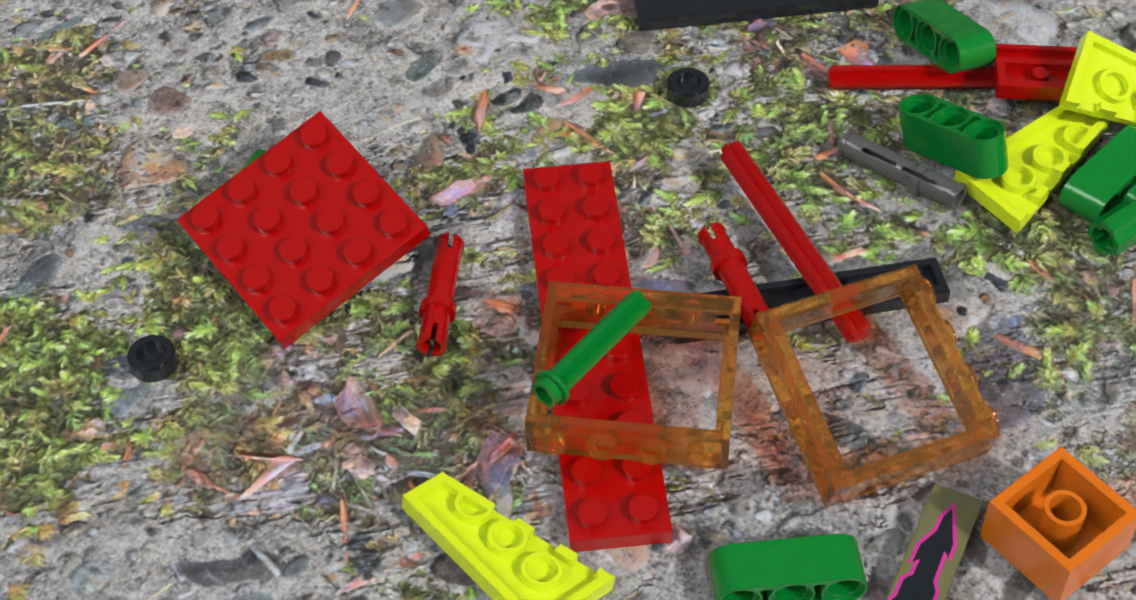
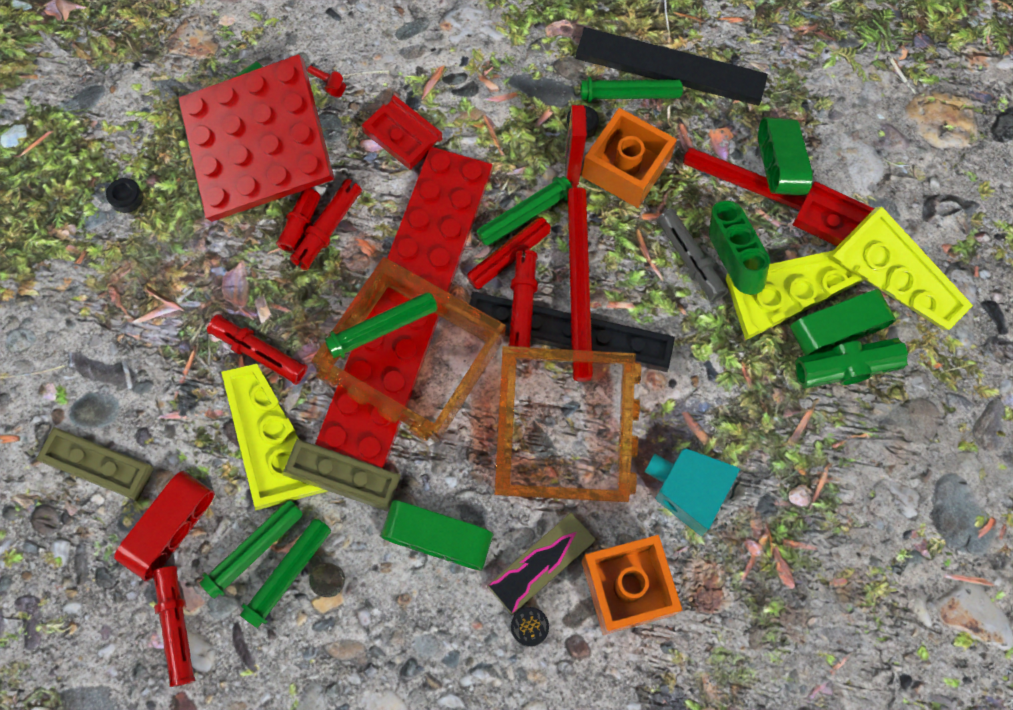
camera: 20 degrees right, 20 degrees up
(364, 144) = (334, 82): none -> red hand
(378, 452) = (243, 341): none -> red pin
(402, 304) = (298, 220): none -> red axle
(478, 166) = (401, 132): none -> red plate
(626, 554) = (341, 475): none -> olive tile
(679, 50) = (630, 89): none -> green axle
(685, 243) = (506, 253): none -> red axle
(704, 161) = (524, 211): none -> green axle
(708, 95) = (575, 144): none -> red tile
(770, 95) = (628, 157): none -> orange brick
(1060, 399) = (692, 486): none -> teal torso

